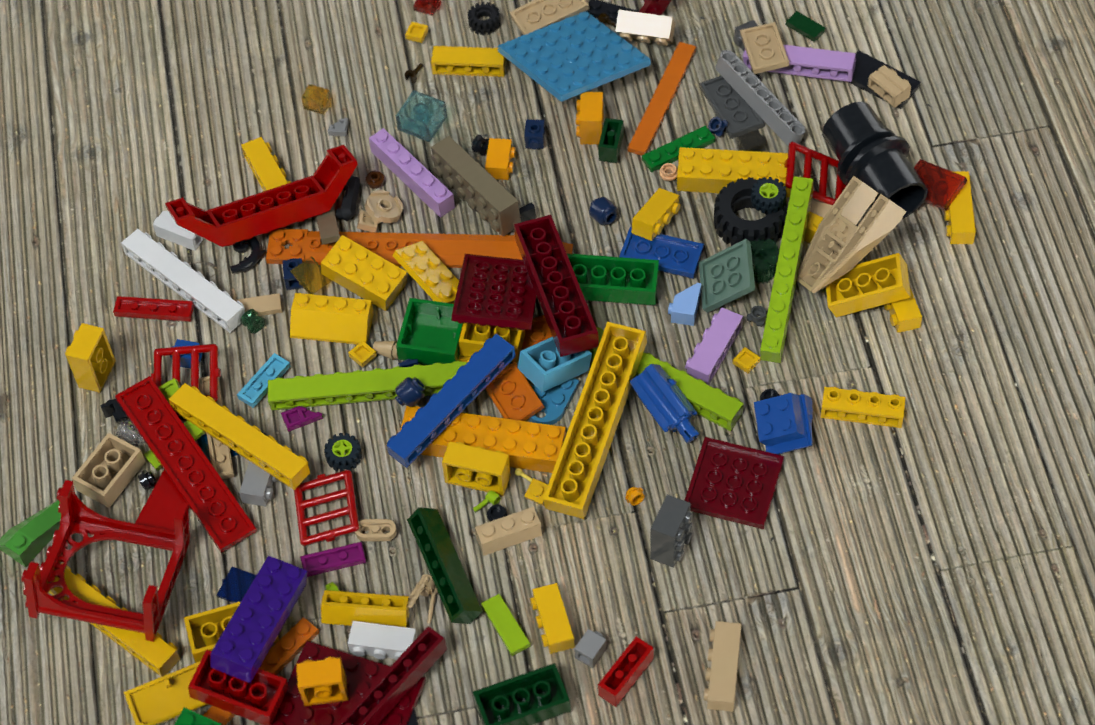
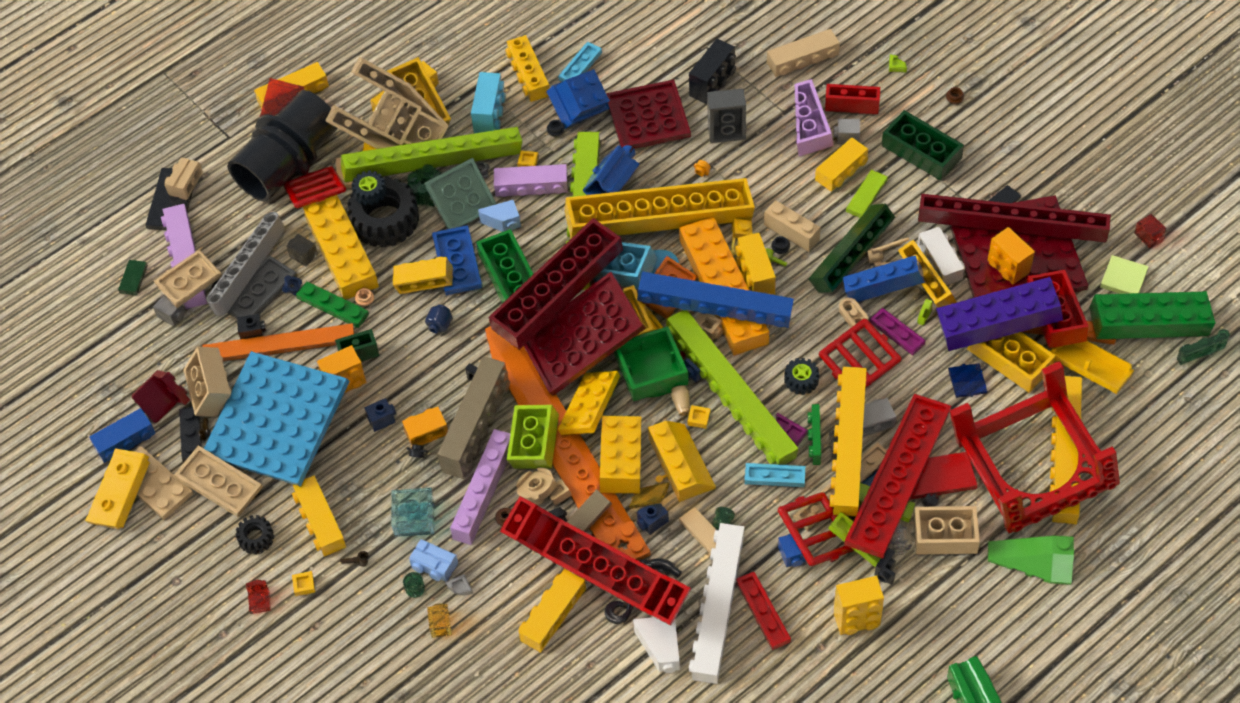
camera: 120 degrees left, 0 degrees up
(277, 429) = (814, 434): none -> green plate
(361, 97) = (414, 579): none -> clear green wheel
(370, 115) = (433, 560): none -> light blue brick
(382, 562) = (884, 279): none -> blue brick
(410, 392) = (724, 338): dark blue head -> none
(426, 218) = (532, 436): none -> lime brick
(627, 618) = (811, 123): none -> lavender wedge
(689, 81) = (251, 326): none -> black brick
(745, 558) = (712, 70): none -> black brick
(828, 344) = (488, 102): none -> medium azure brick
(841, 456) = (581, 62): none -> medium azure plate

